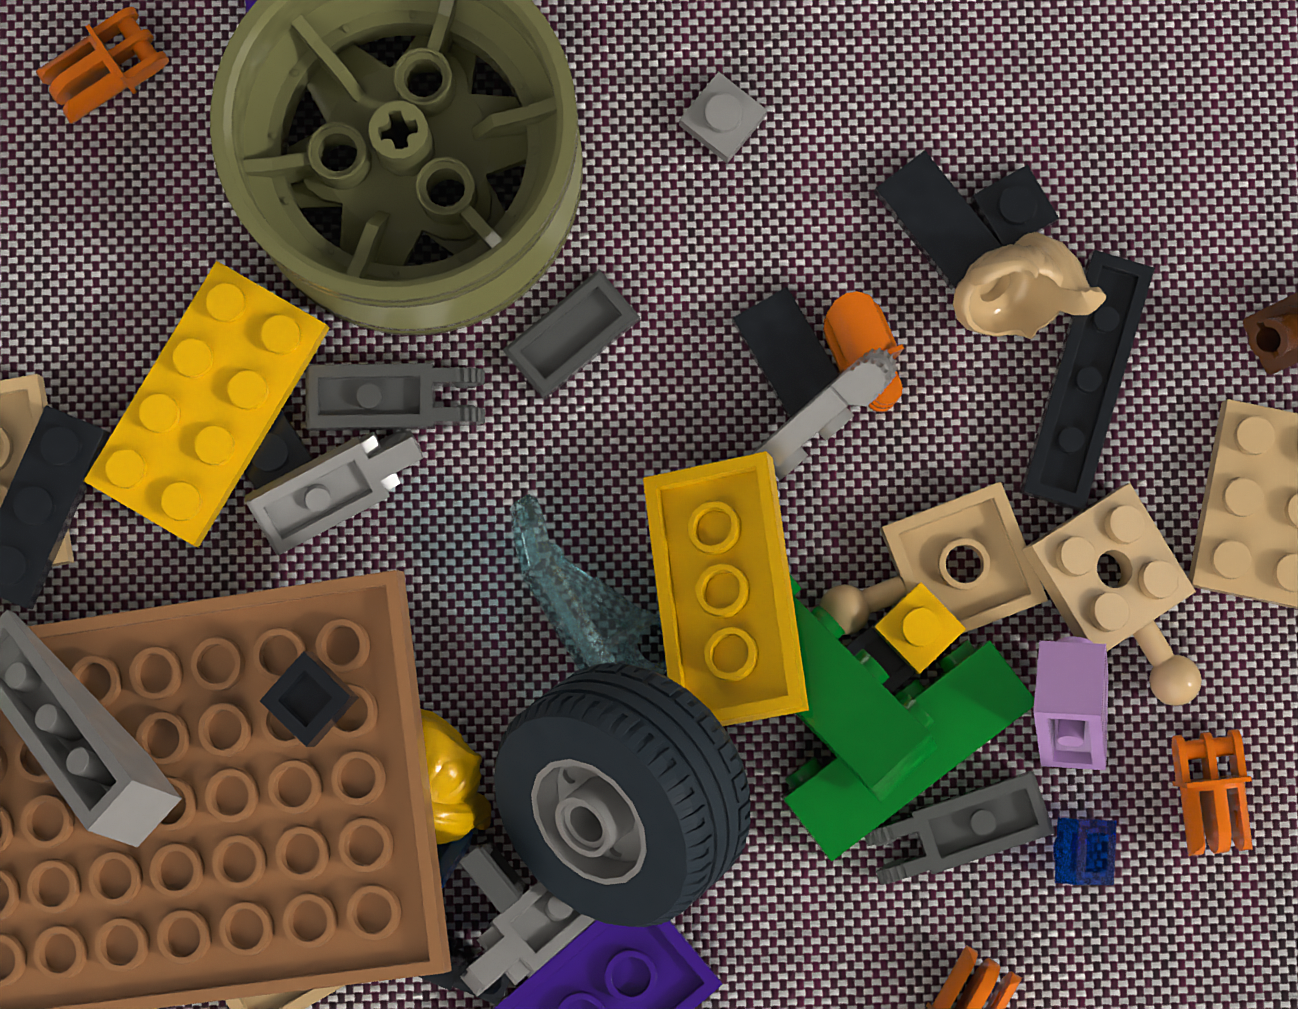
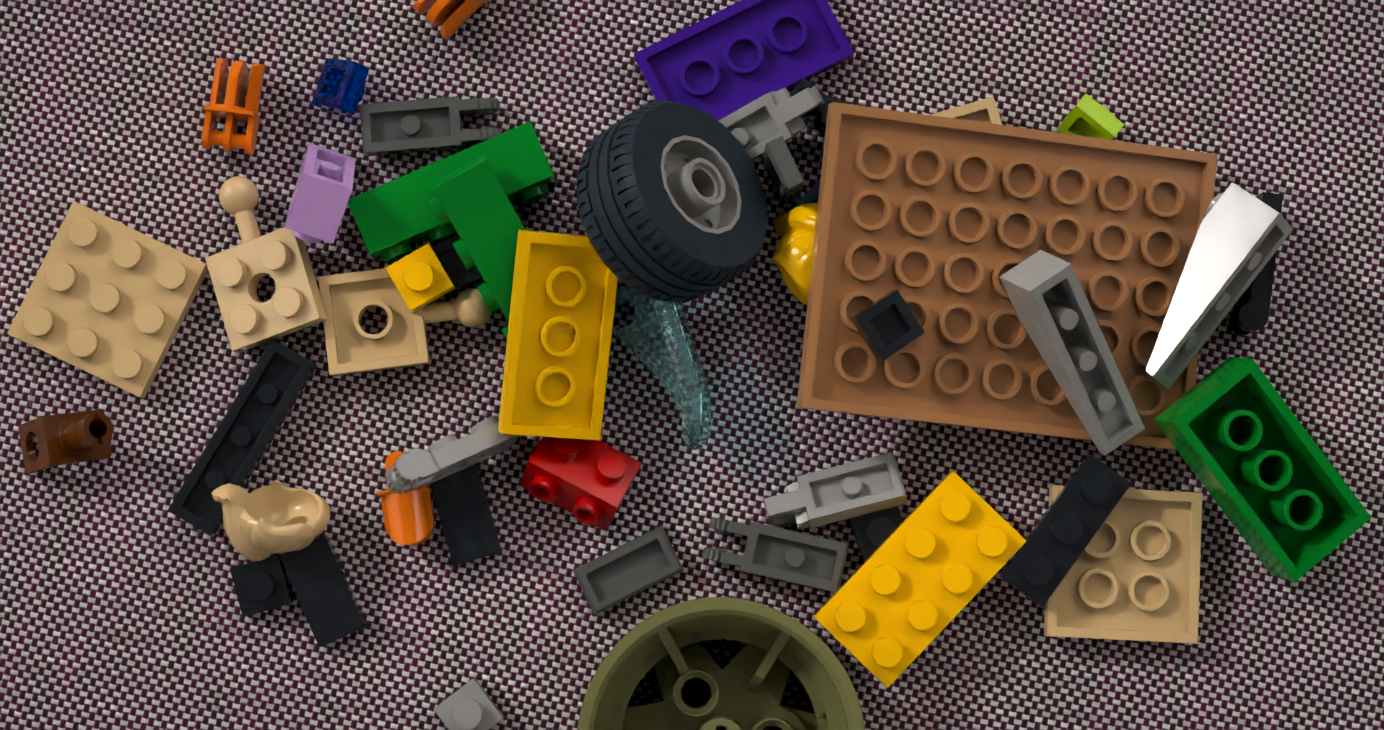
camera: 165 degrees left, 0 degrees up
(655, 429) = (580, 477): none -> red bracket

